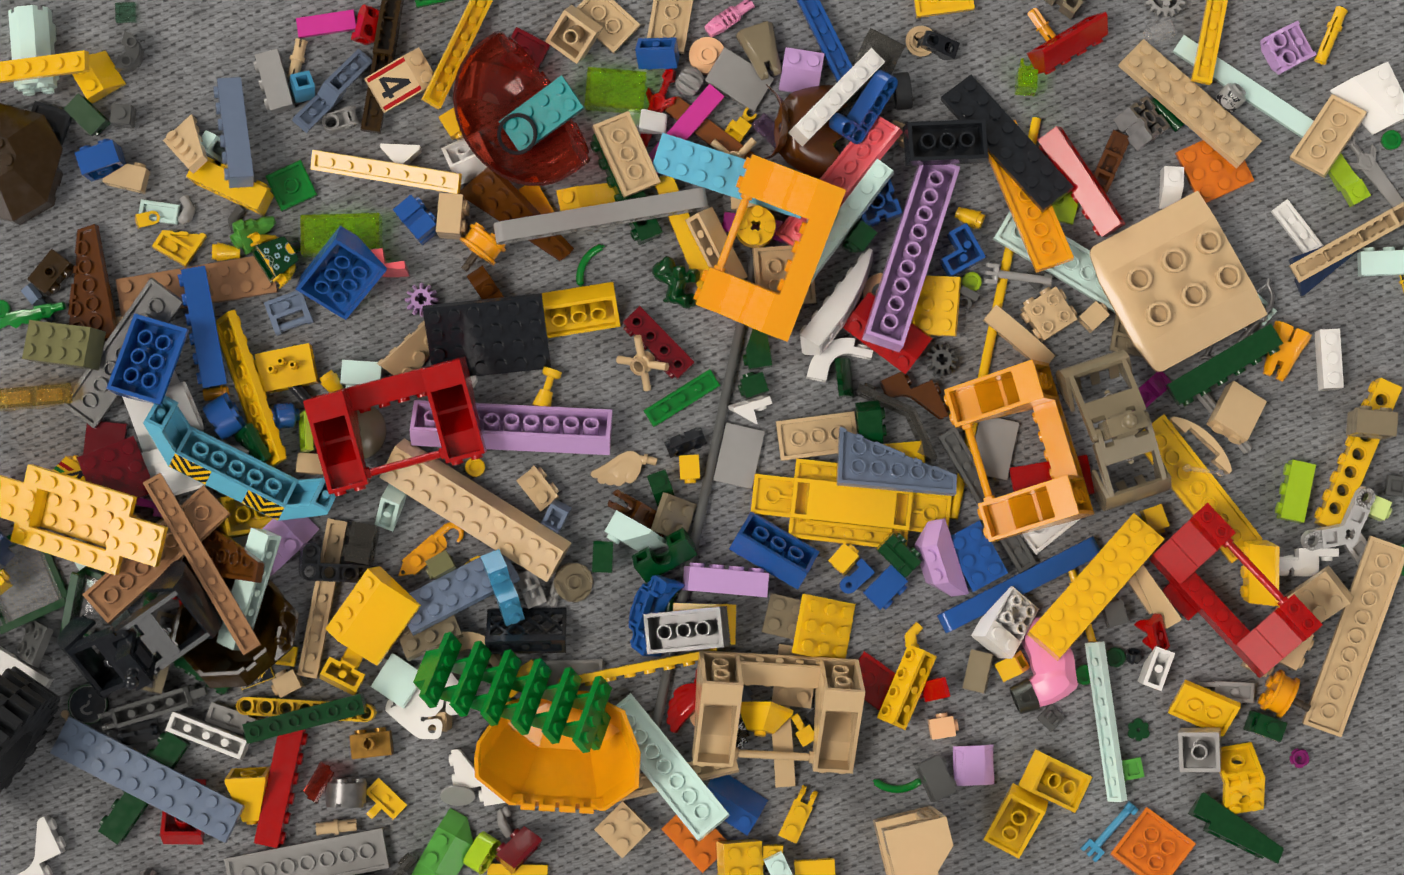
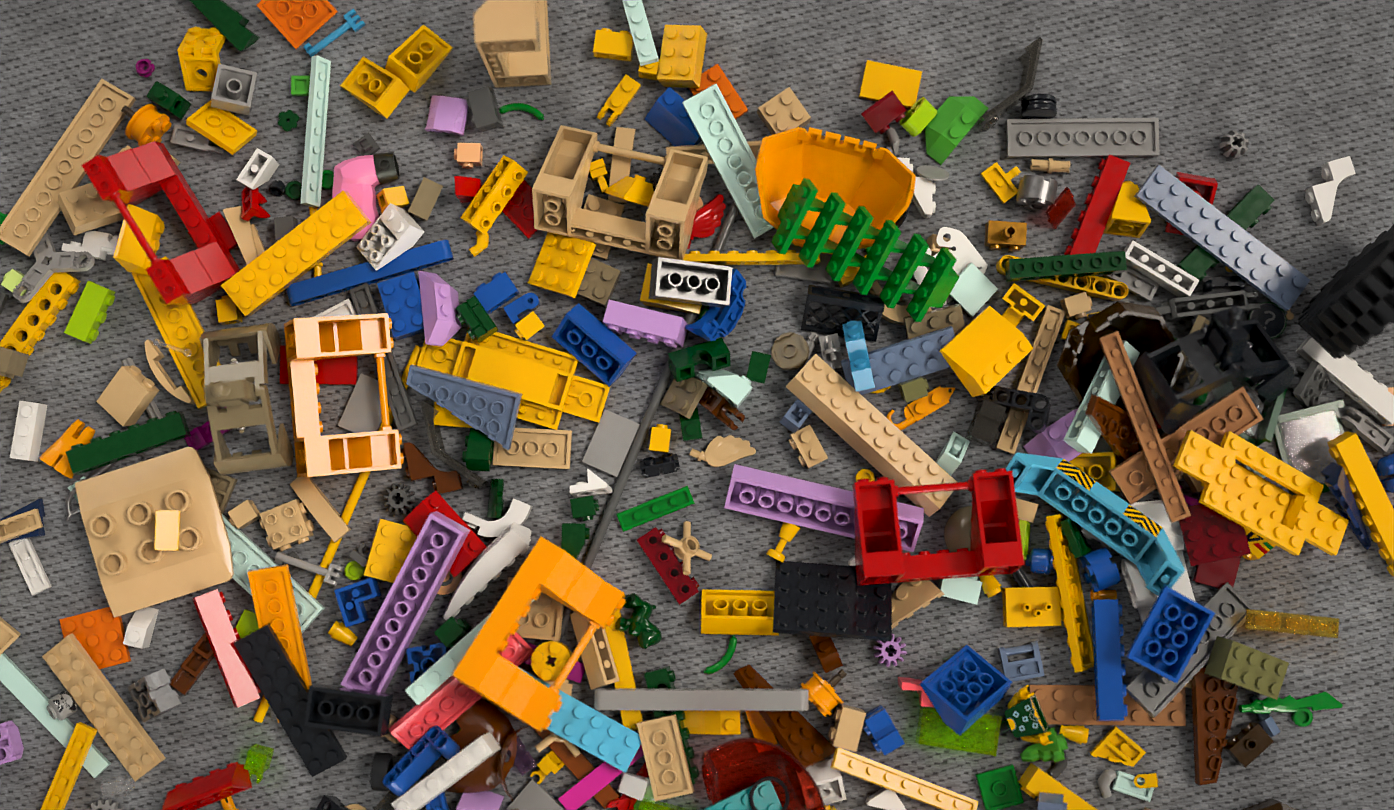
camera: 170 degrees left, 0 degrees up
(1161, 282) = (167, 530): none -> yellow slope
(1172, 120) = (125, 695): dark green pin -> none

